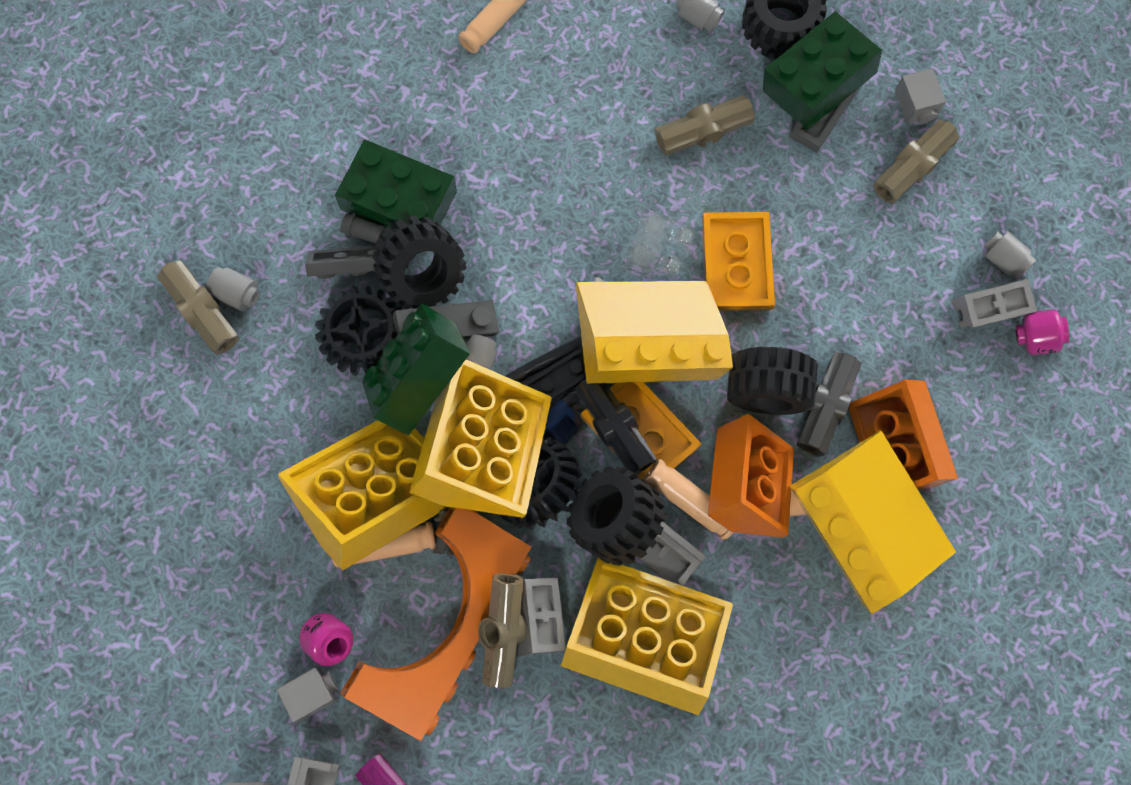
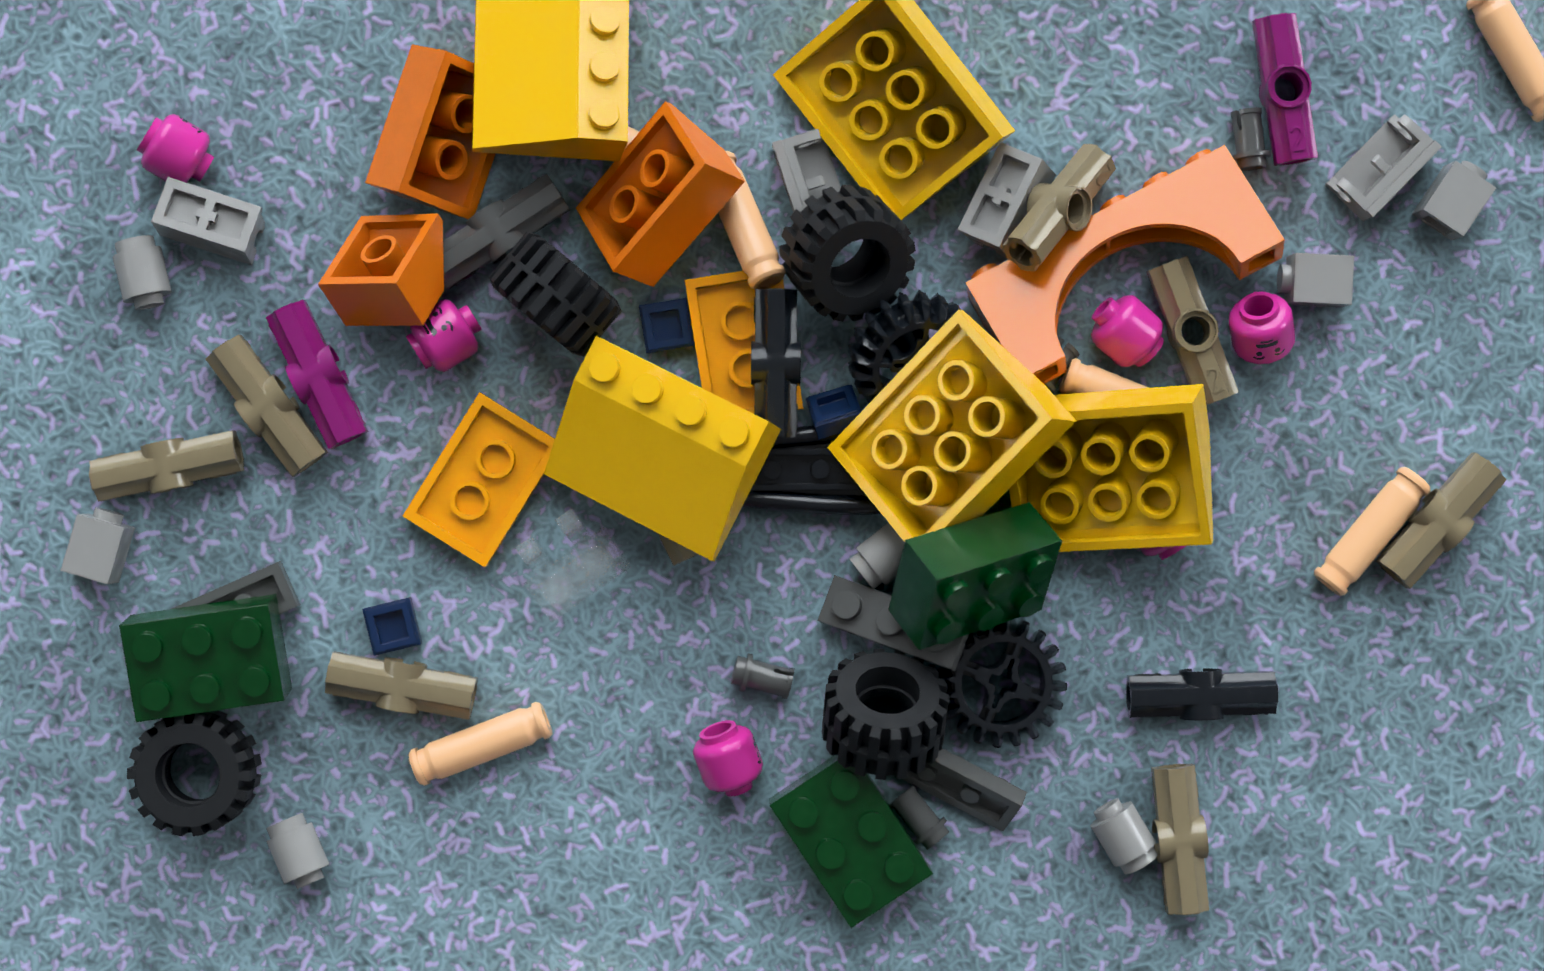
camera: 145 degrees left, 15 degrees up
(139, 593) = (1441, 520): none -> dark tan piece
(181, 559) = (1372, 531): none -> light nougat axle
(233, 396) = (1201, 694): none -> black piece
(352, 596) = (1182, 300): none -> dark tan piece
(407, 759) = (1249, 139): none -> dark grey pin
(411, 584) = (1127, 331): none -> dark pink head
(495, 194) = (727, 758): none -> dark pink head
(504, 251) = (762, 676): none -> dark grey pin
(639, 121) = (480, 743): none -> light nougat axle
(694, 412) = (666, 325): none -> dark blue tile
(731, 155) = (392, 626): none -> dark blue tile
(817, 324) = (445, 337): none -> dark pink head
(872, 259) = (316, 375): none -> magenta piece
(876, 337) = (388, 271): none -> orange slope
(887, 226) = (265, 405): none -> dark tan piece

